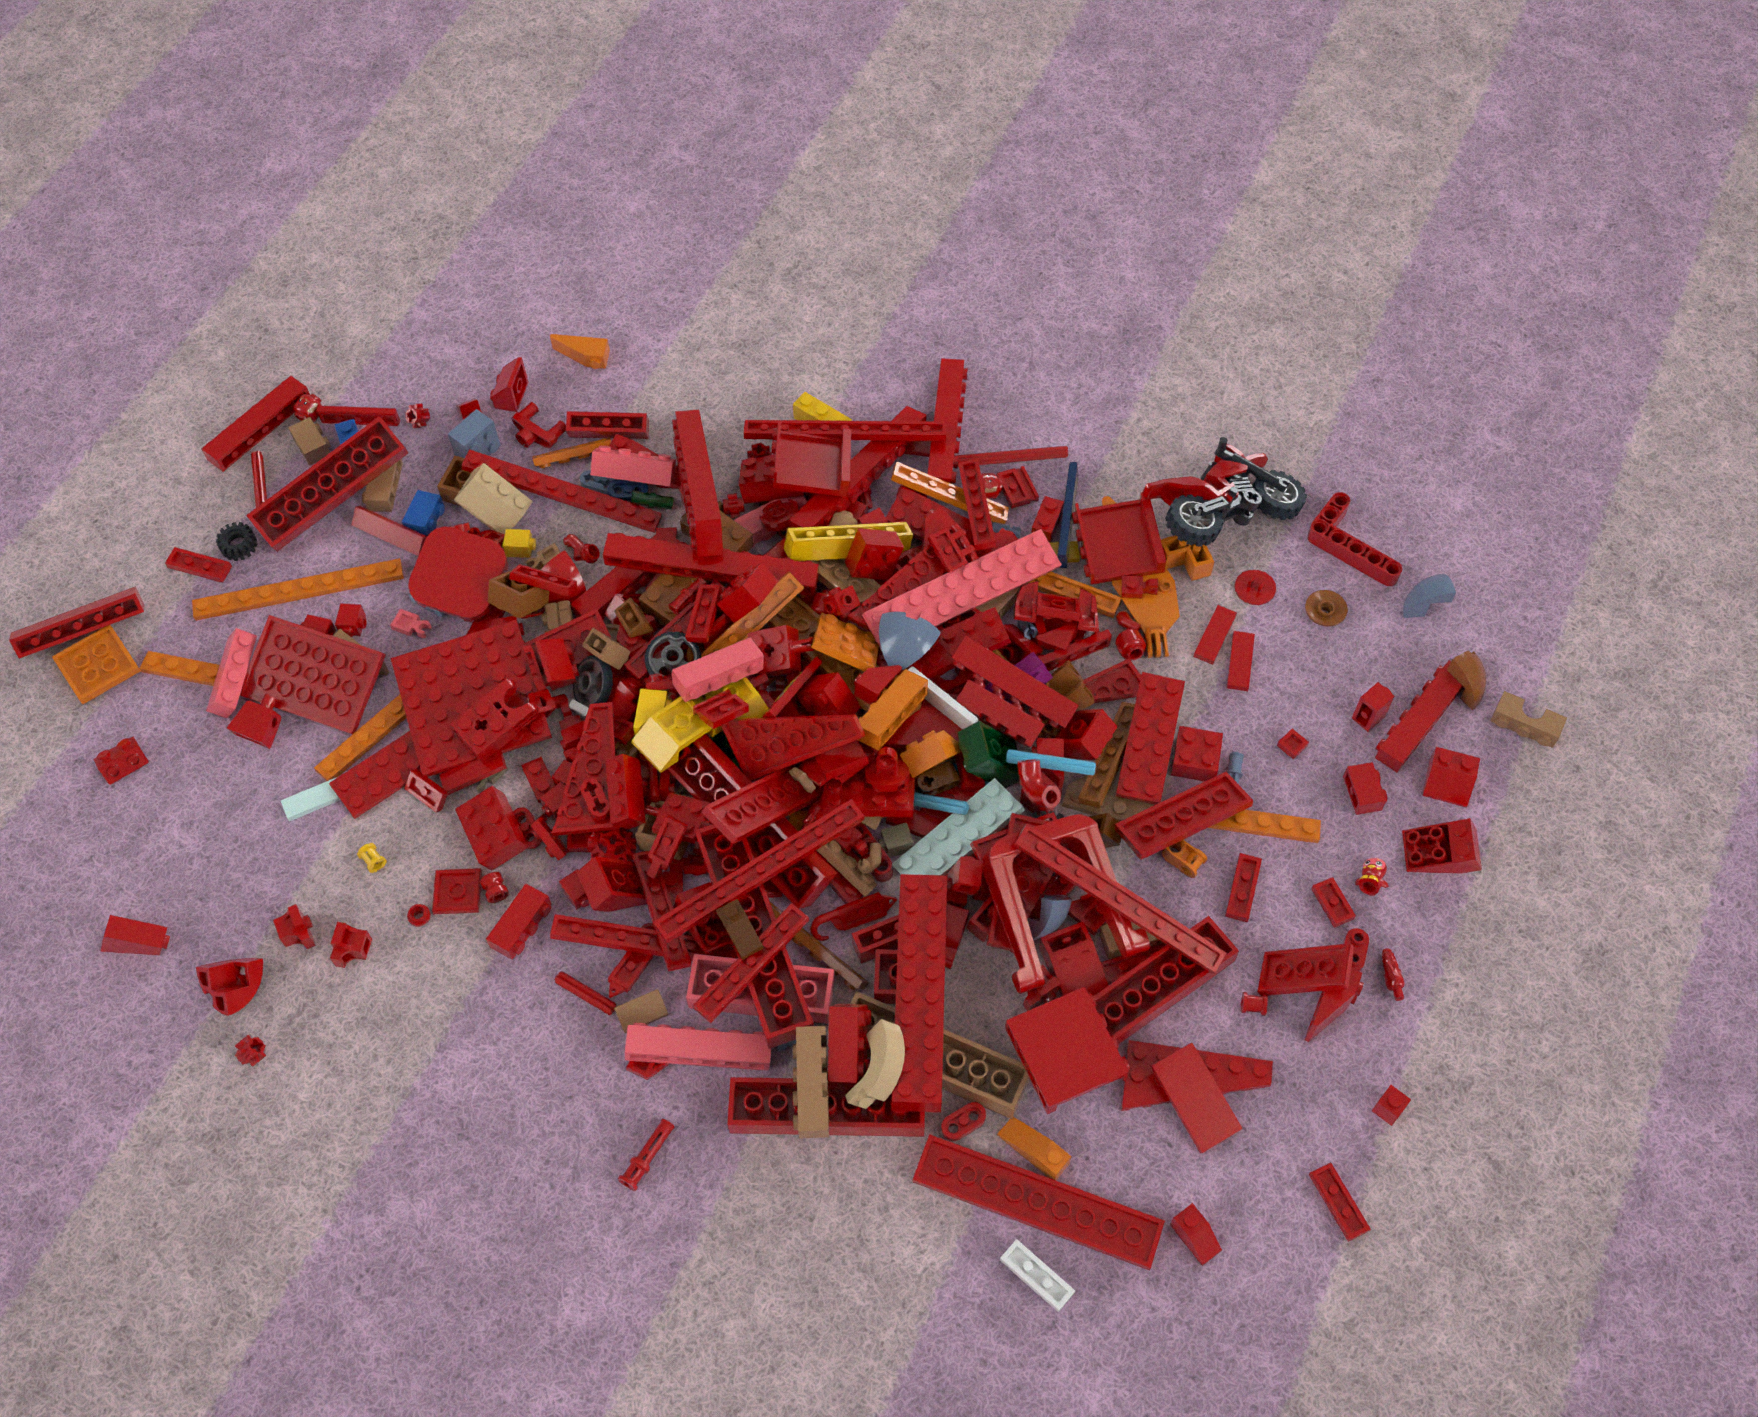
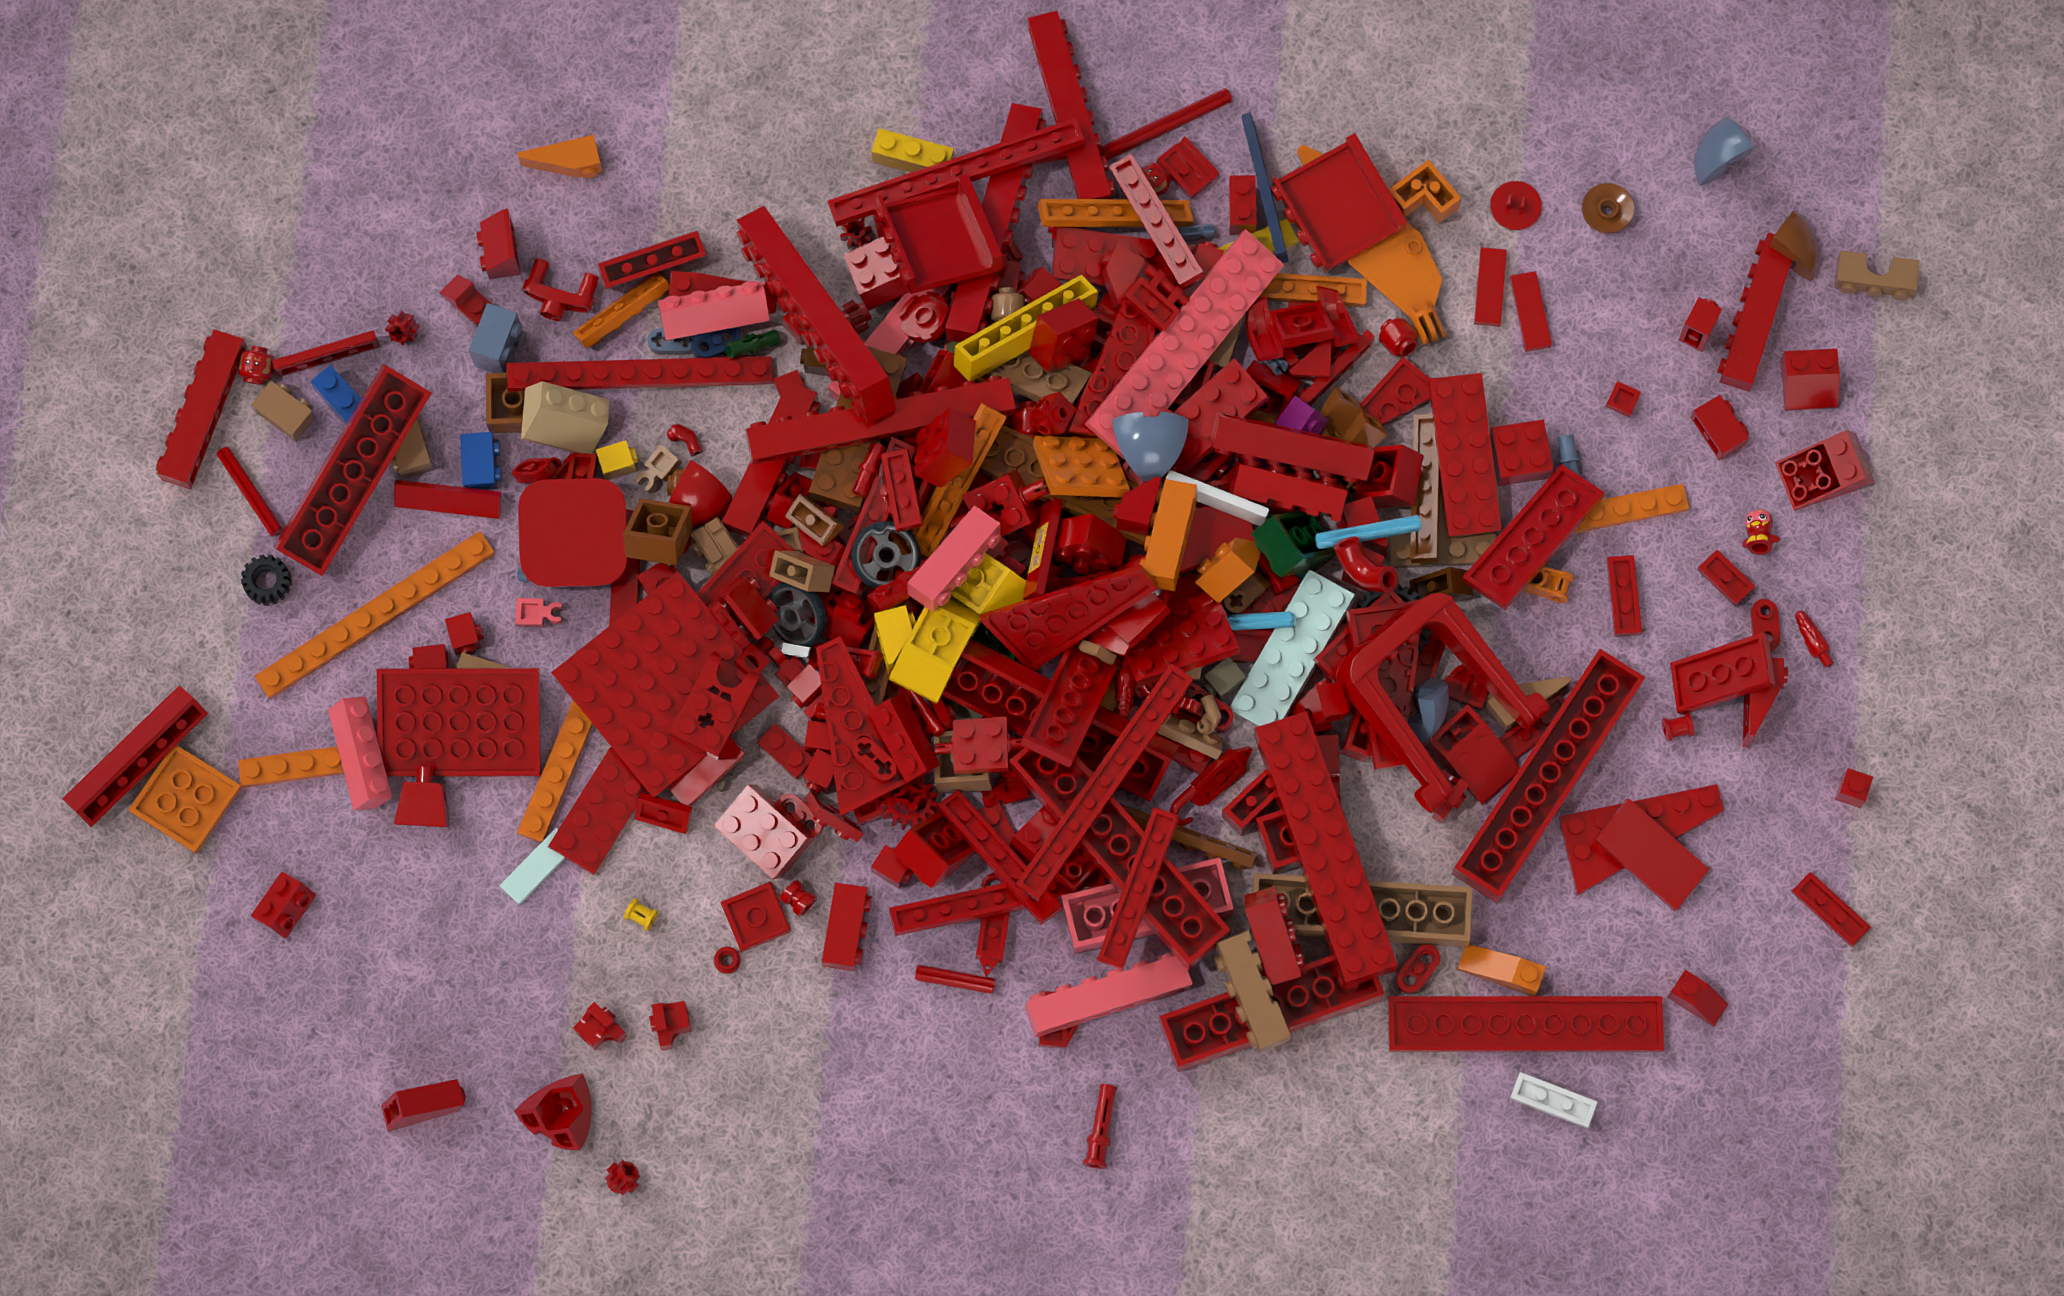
camera: 20 degrees left, 15 degrees up
(198, 564) = (236, 627): red plate -> none
(543, 580) = (684, 508): red tile -> none
(590, 553) = (709, 442): red plate -> none
(641, 1010) = (1025, 977): medium nougat slope -> none
(665, 845) = (980, 785): red hinge -> none
(720, 709) = (978, 606): red plate -> none
(739, 929) = (1113, 858): reddish brown slope -> none
(884, 1068) = (1325, 947): tan arch -> none
(887, 773) = (1191, 610): red tile -> none
(1066, 1048) = (1502, 856): red panel -> none
(1119, 898) = (1503, 672): red plate -> none
(1124, 620) = (1381, 308): red arm -> none
(1135, 587) = (1378, 261): red plate -> none
(1226, 495) = (1445, 102): piece -> none
(1347, 548) = (1609, 110): red beam -> none

